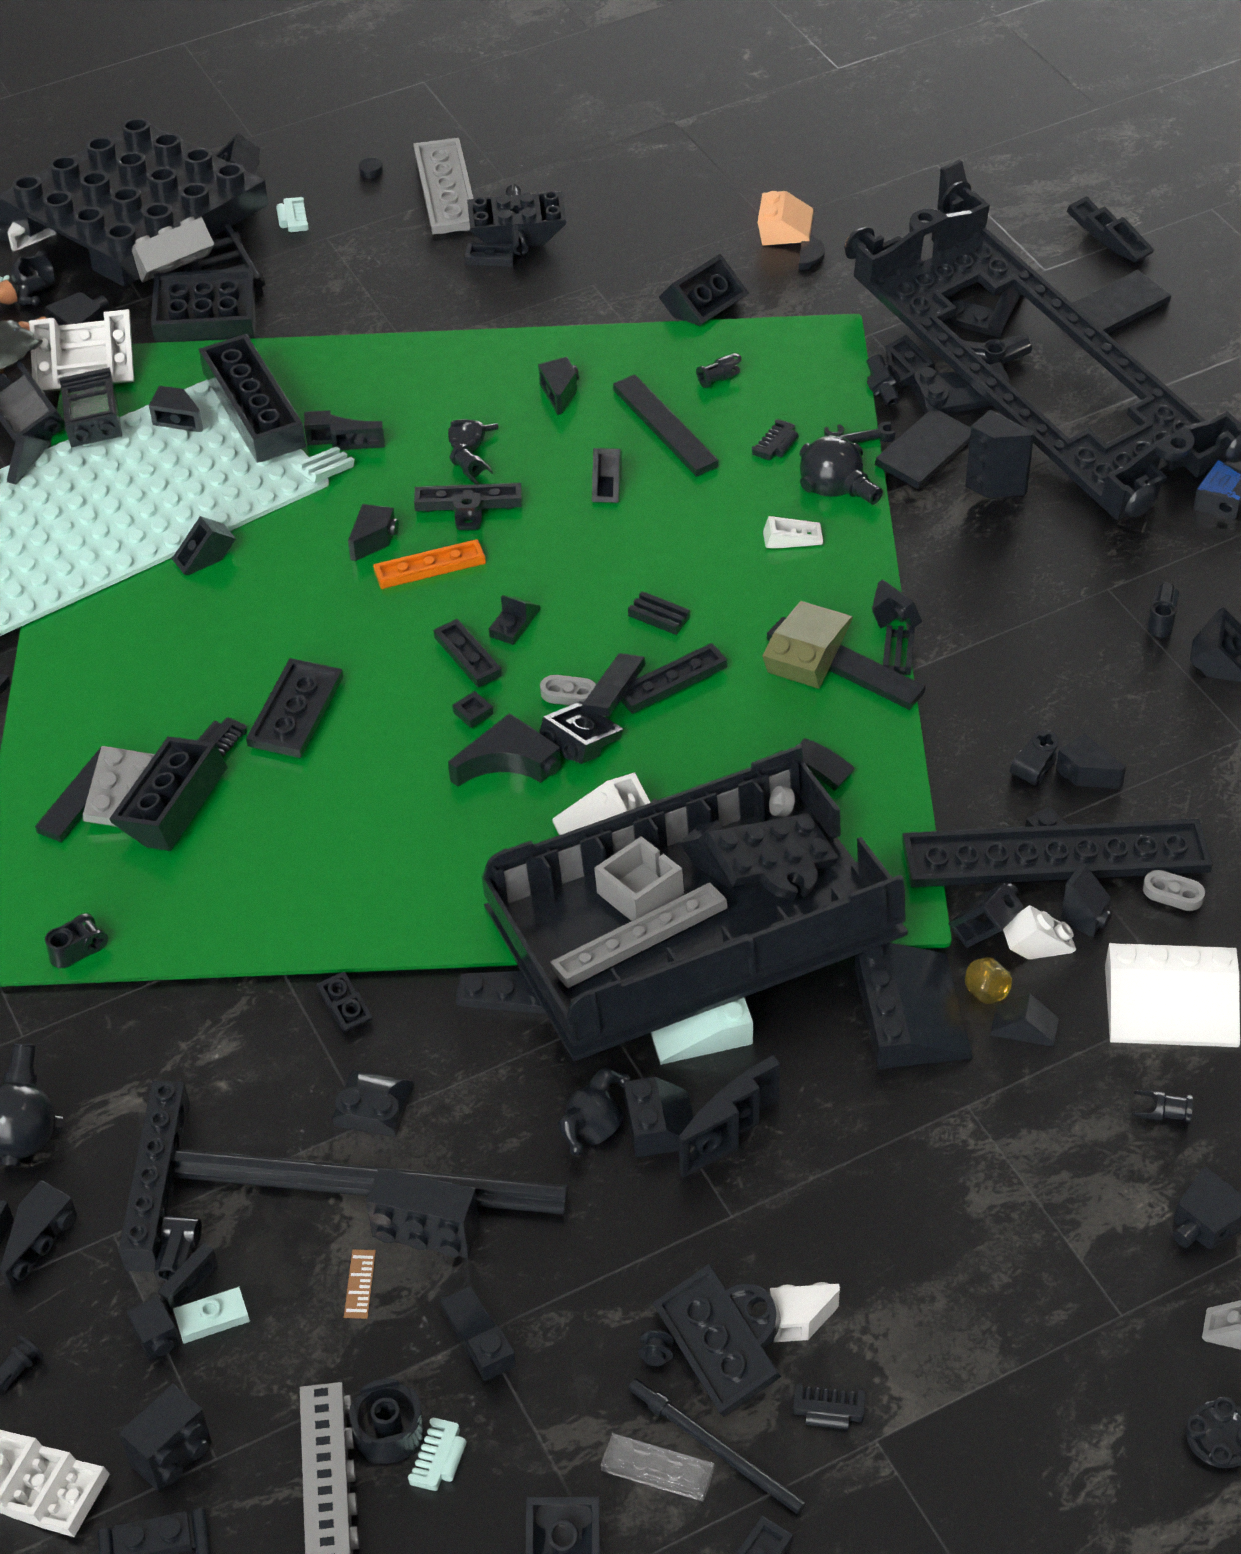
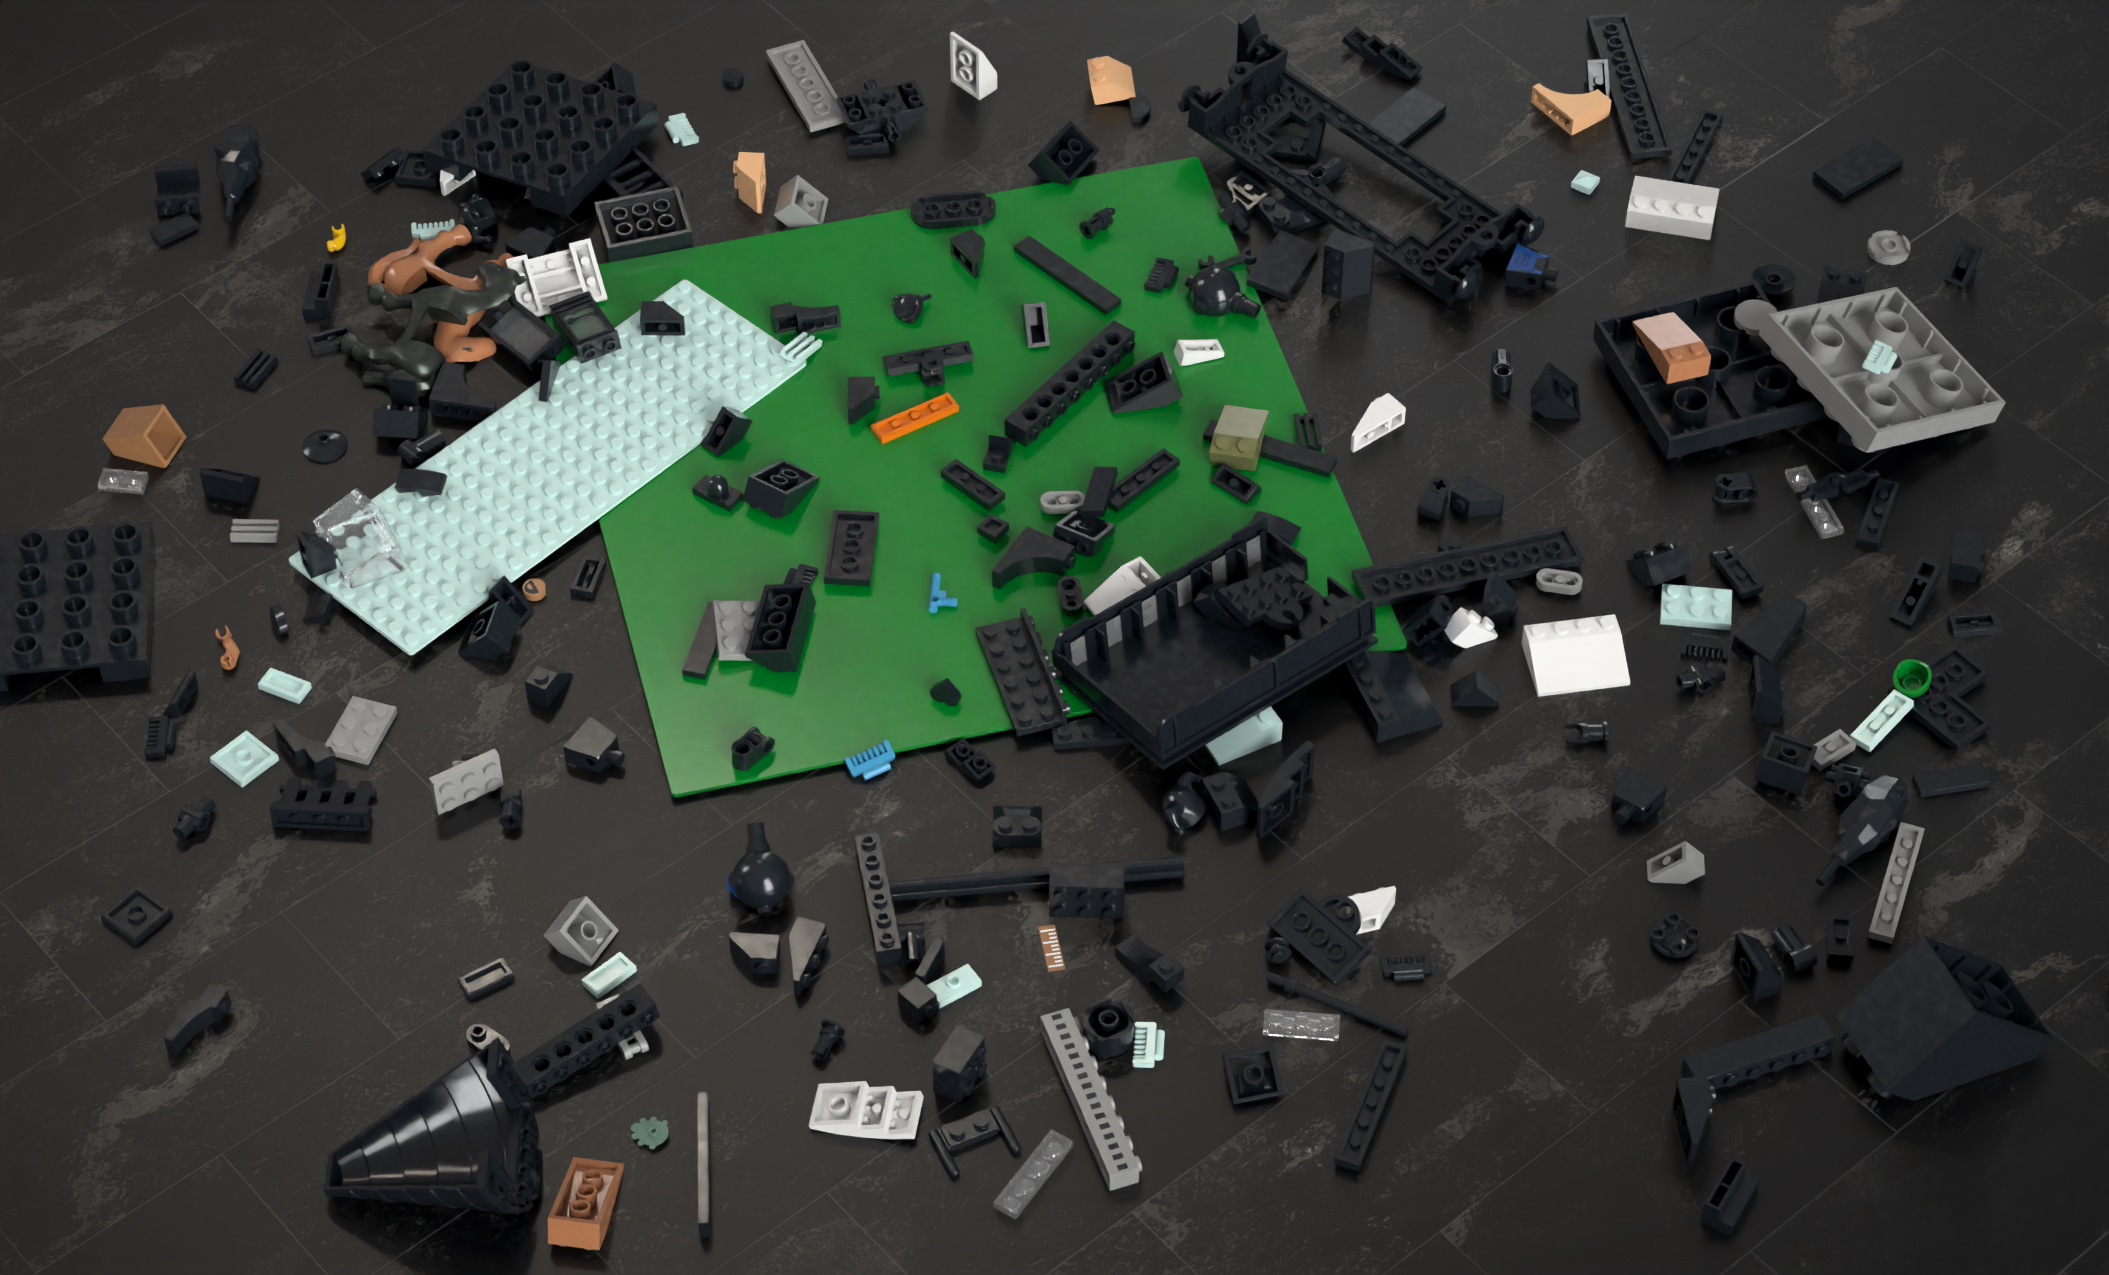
camera: 15 degrees left, 0 degrees up
(166, 617) = (716, 490): none -> black tile
(172, 248) = (605, 178): light grey slope -> none
(222, 989) = (873, 766): none -> dark azure piece
(236, 622) = (779, 488): none -> black slope
(252, 398) = (722, 300): black brick -> none
(340, 908) = (946, 692): none -> black tile
(343, 272) = (751, 179): none -> light nougat slope
(379, 783) = (938, 597): none -> dark azure hose
(389, 307) = (800, 204): none -> light grey slope
(445, 903) = (1023, 674): none -> black bracket
(470, 464) = (919, 330): black piece -> none
(536, 814) = (1070, 595): none -> black plate
(558, 335) = (953, 210): none -> black tile
(623, 549) = (1069, 383): none -> black brick
(628, 187) = (971, 68): none -> white slope
(638, 935) = (1183, 673): light grey plate -> none
(639, 879) = (1165, 634): light grey piece -> none
(661, 609) = (1114, 428): black tile -> none
(713, 565) = (1144, 386): none -> black slope
(781, 801) = (1258, 560): light grey tile -> none
(789, 700) = (1236, 484): none -> black slope
(892, 605) = (1295, 396): black slope -> none
(988, 980) = (1441, 667): clear yellow head -> none
(990, 648) = (1379, 419): none -> white slope

